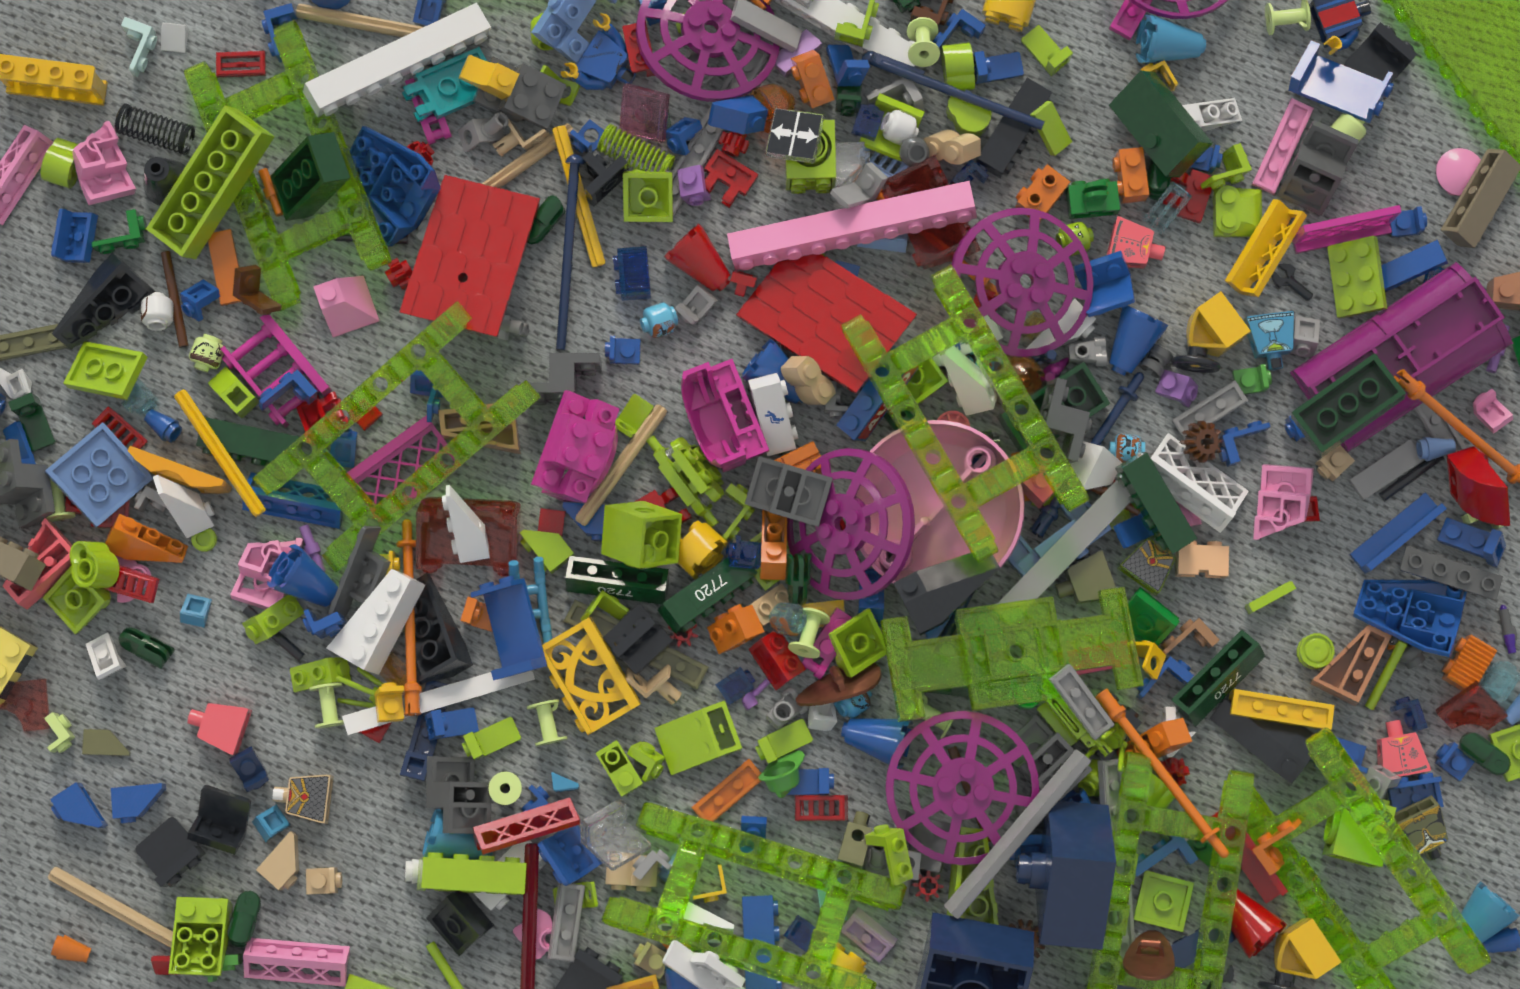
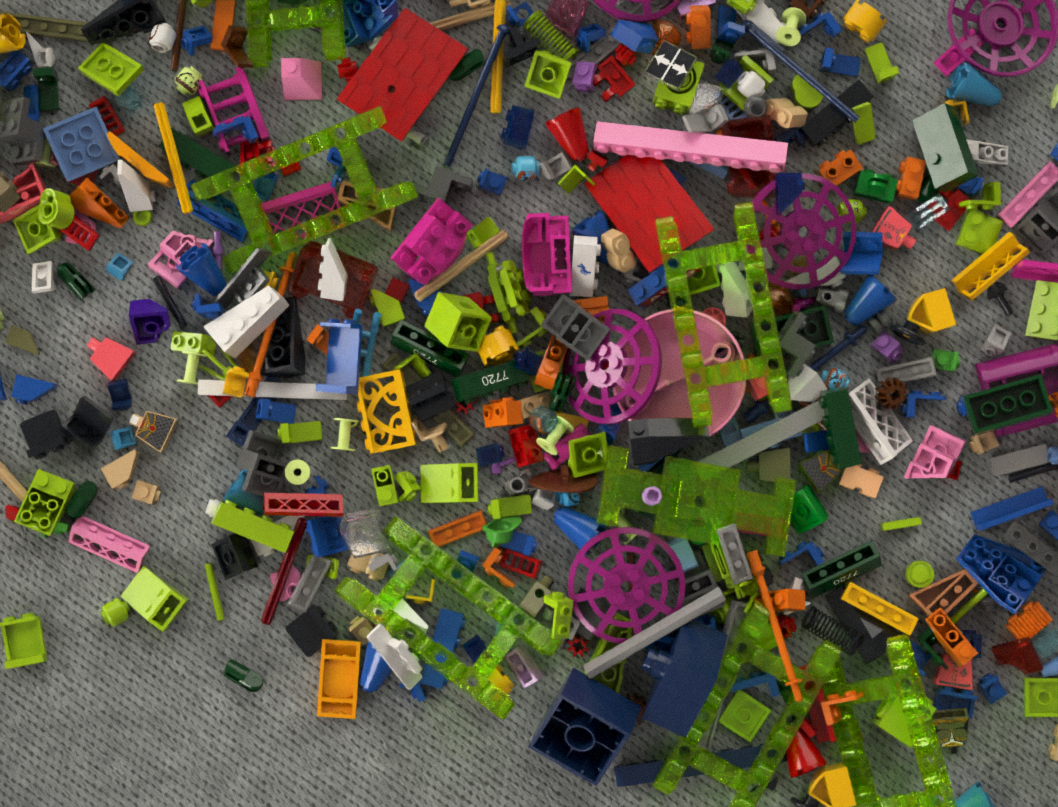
camera: 20 degrees right, 5 degrees up
(164, 426) = (140, 124): blue cone -> none
(254, 664) = (148, 320): none -> dark purple slope
(273, 619) = (173, 291): lime bracket -> none
(563, 784) = (340, 482): dark azure slope -> none
(722, 313) = (572, 179): none -> lime bracket
(786, 812) = (495, 557): none -> orange bracket
(955, 664) = (651, 496): none -> lavender tile
(958, 66) = (811, 53): lime piece -> none
(989, 234) = (787, 189): none -> clear blue slope
(1019, 723) = (684, 553): none -> slope
(1148, 651) = (798, 533): yellow bracket -> none
(1149, 957) = (719, 753): copper shield -> none
(1202, 636) = (842, 535): medium nougat bracket -> none
(1248, 888) = (808, 728): none -> red tile
(1268, 756) = (857, 637): none -> black piece
(1271, 336) = (970, 333): dark azure torso -> none
(1354, 726) = (927, 640): none -> dark green bracket
(1381, 779) = (933, 684): light grey bracket -> none
(1382, 715) = (951, 638): none -> orange slope
(1484, 753) = (1016, 690): dark green arm -> none

